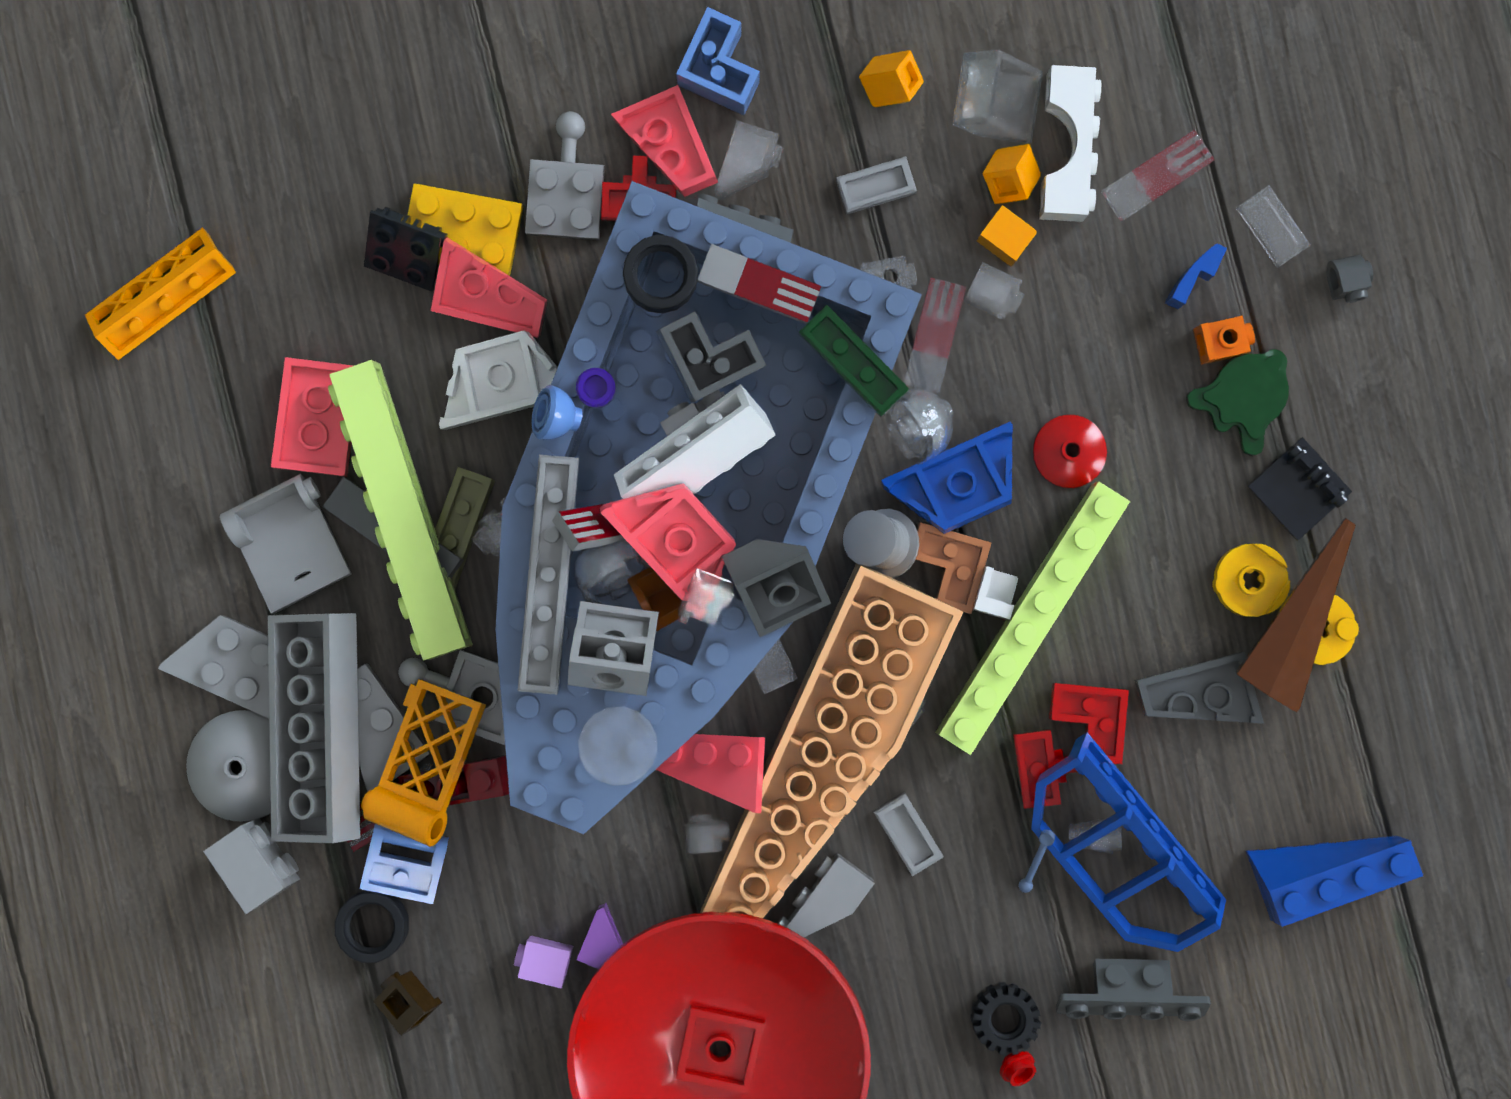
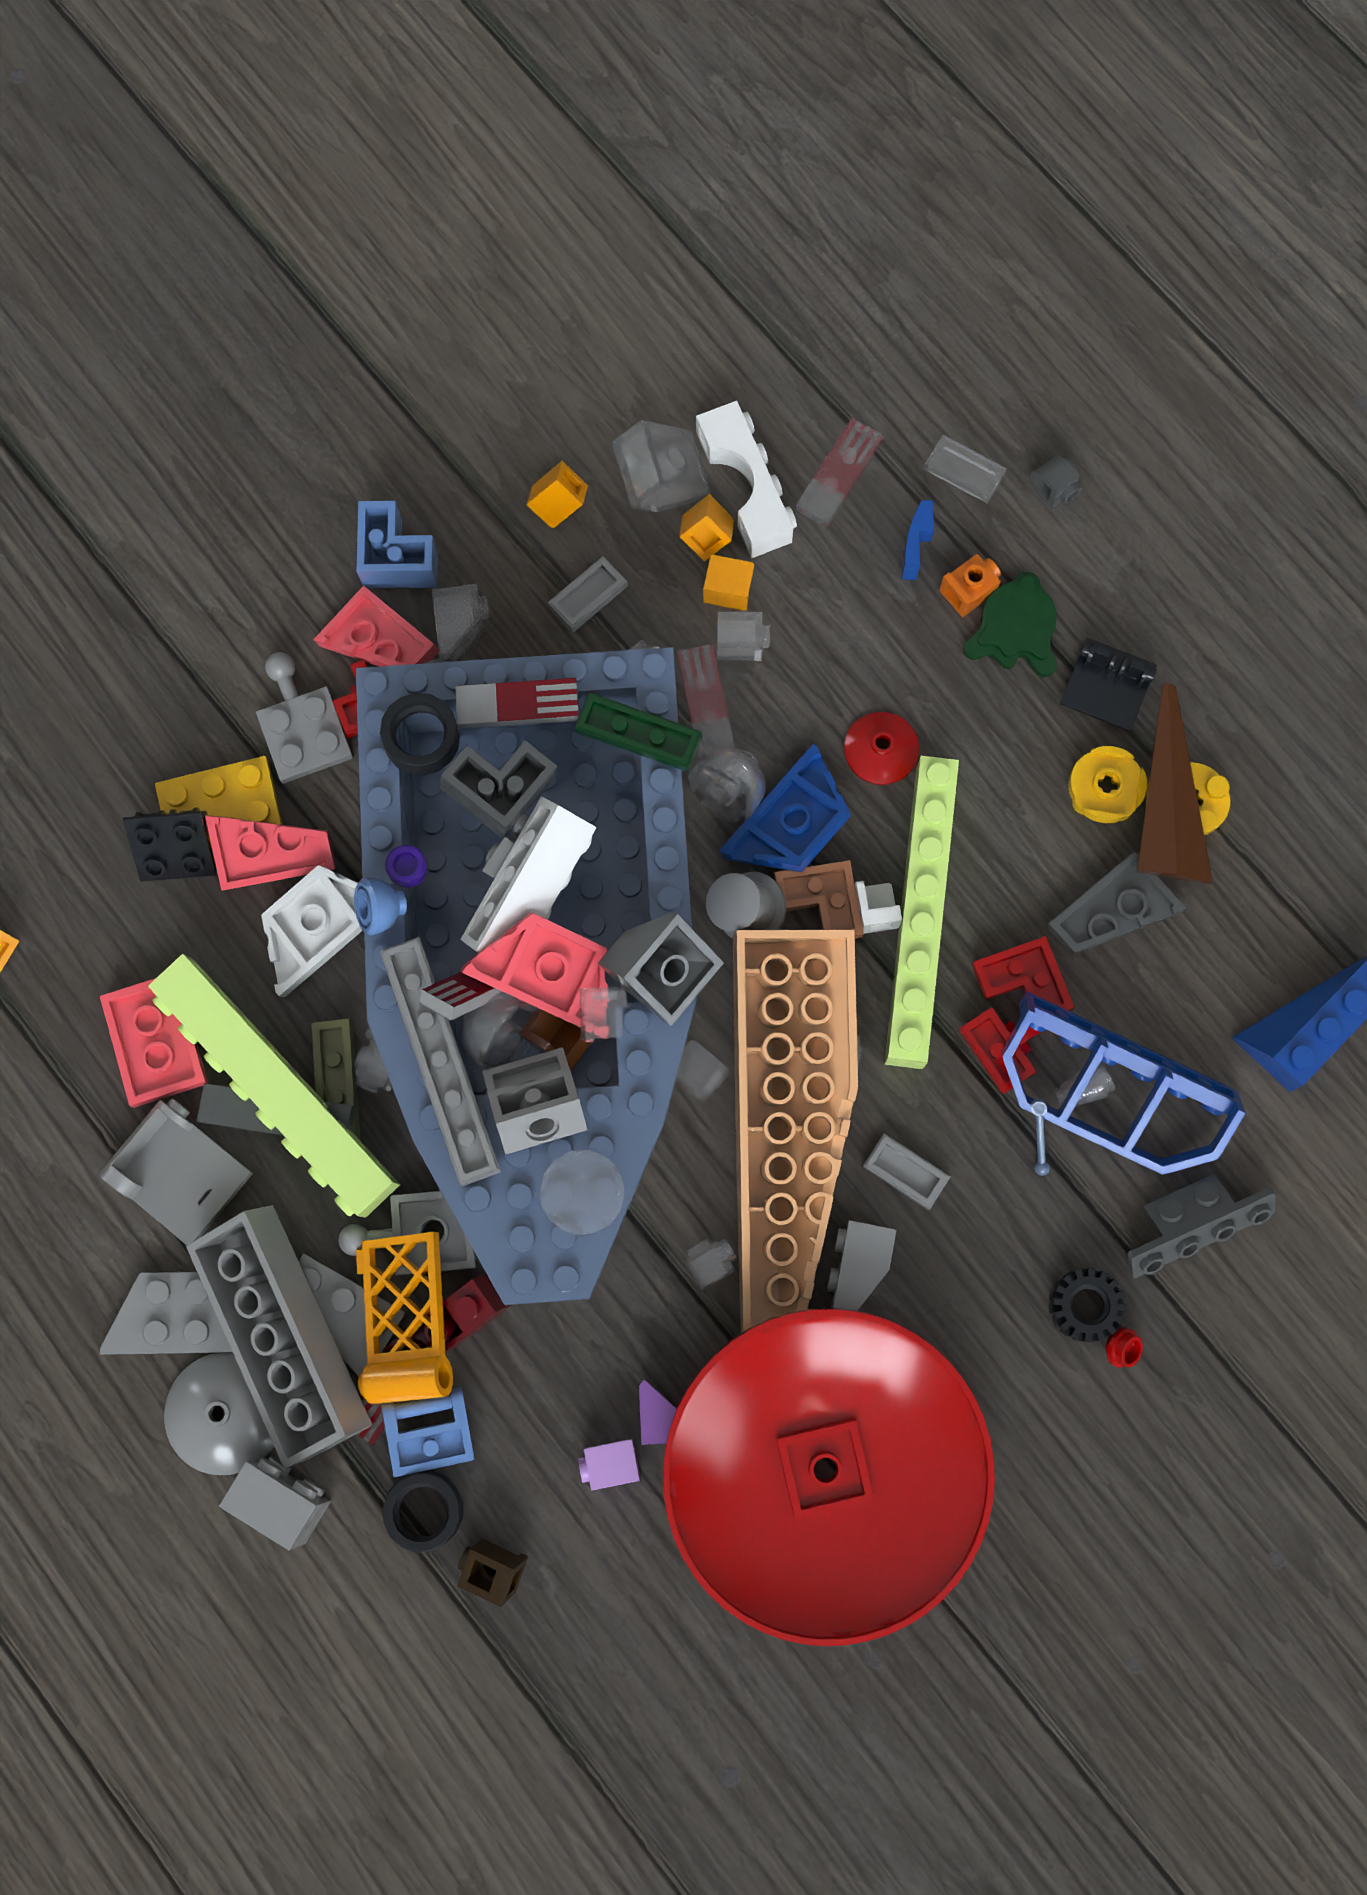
camera: 20 degrees left, 10 degrees down
(721, 766) = (691, 1187): coral wing -> none

